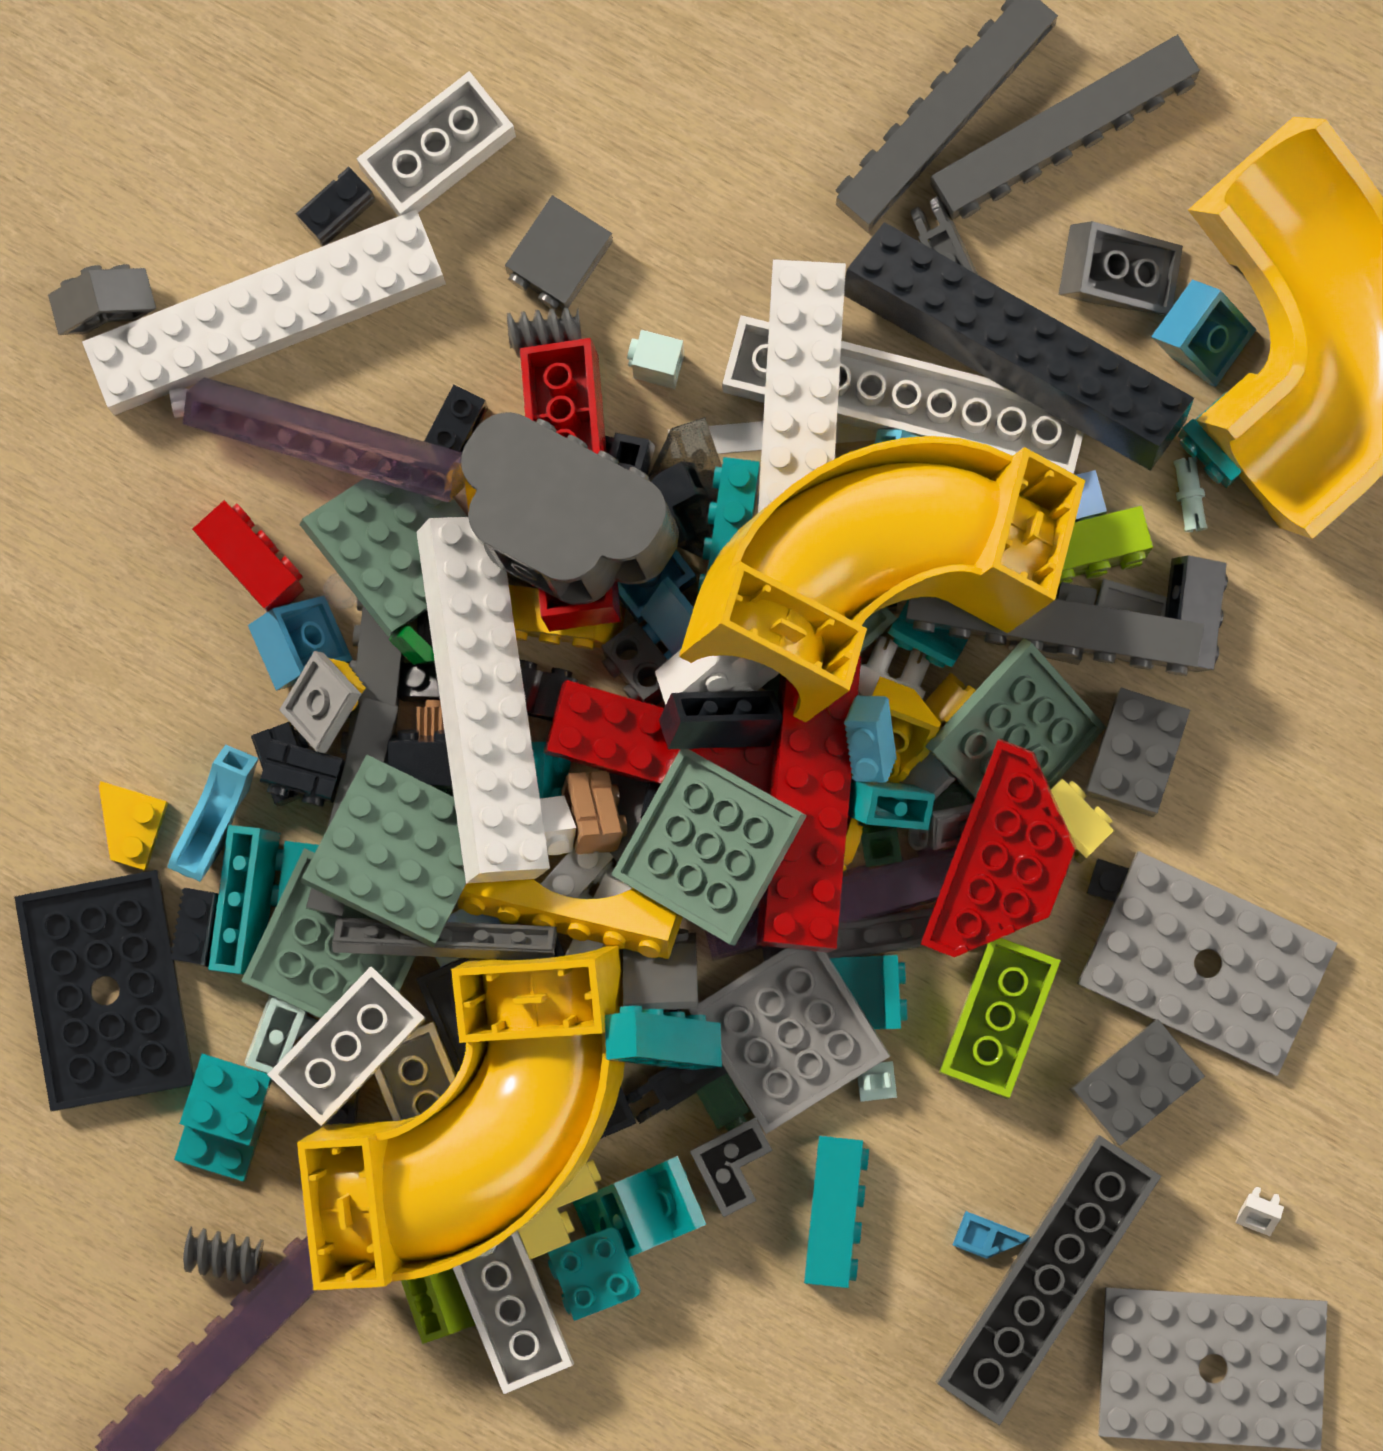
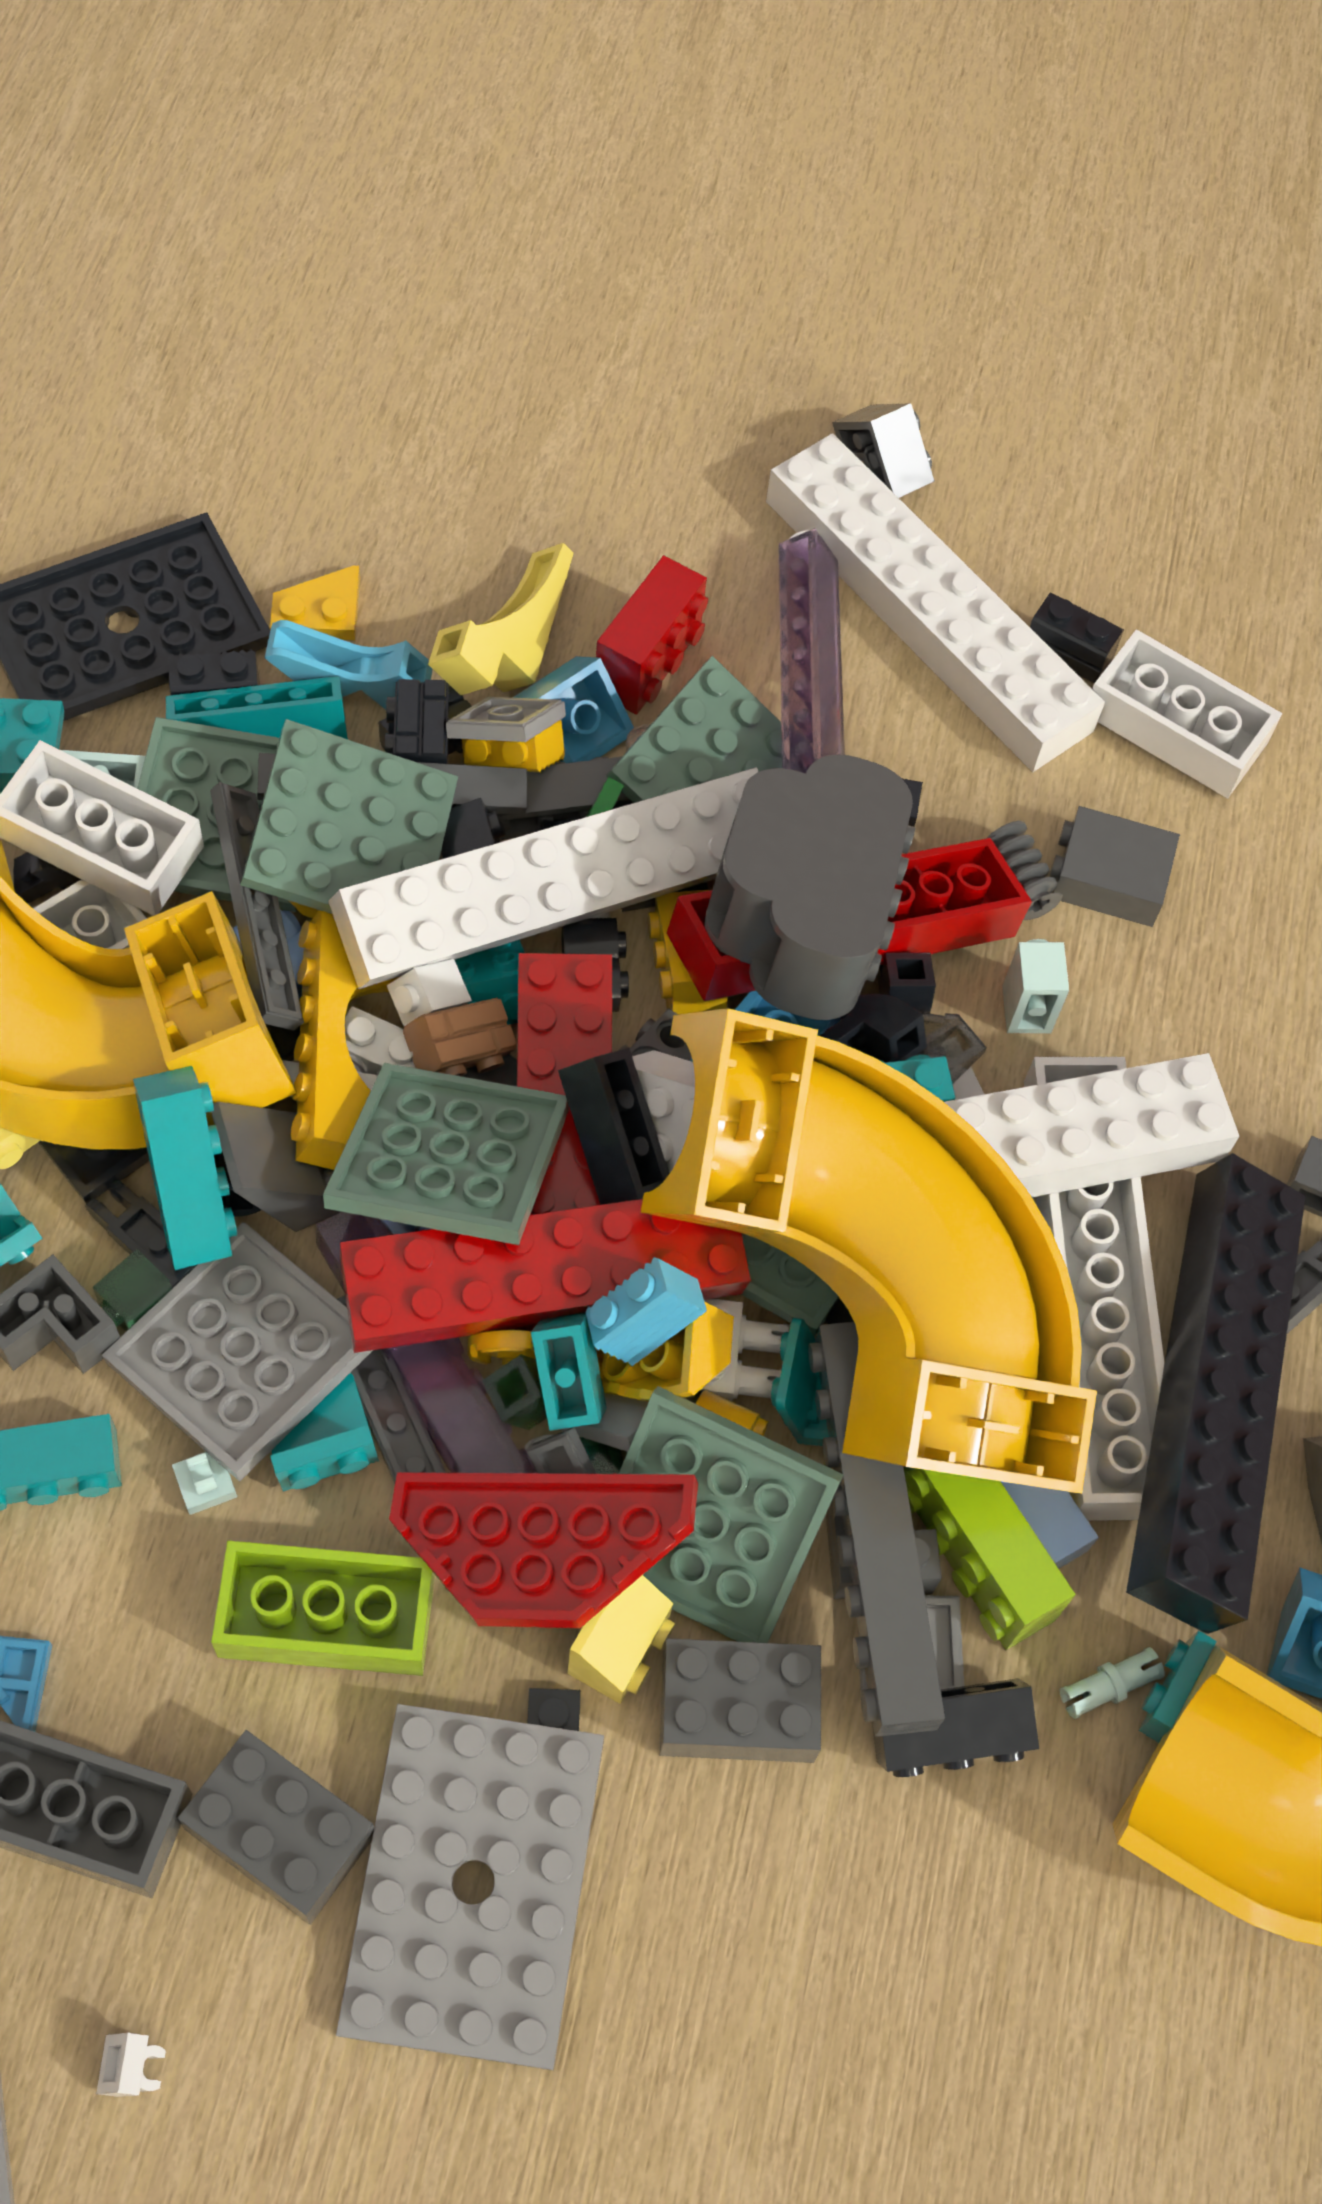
camera: 60 degrees right, 20 degrees down
(217, 671) = (512, 641): none -> light yellow arch

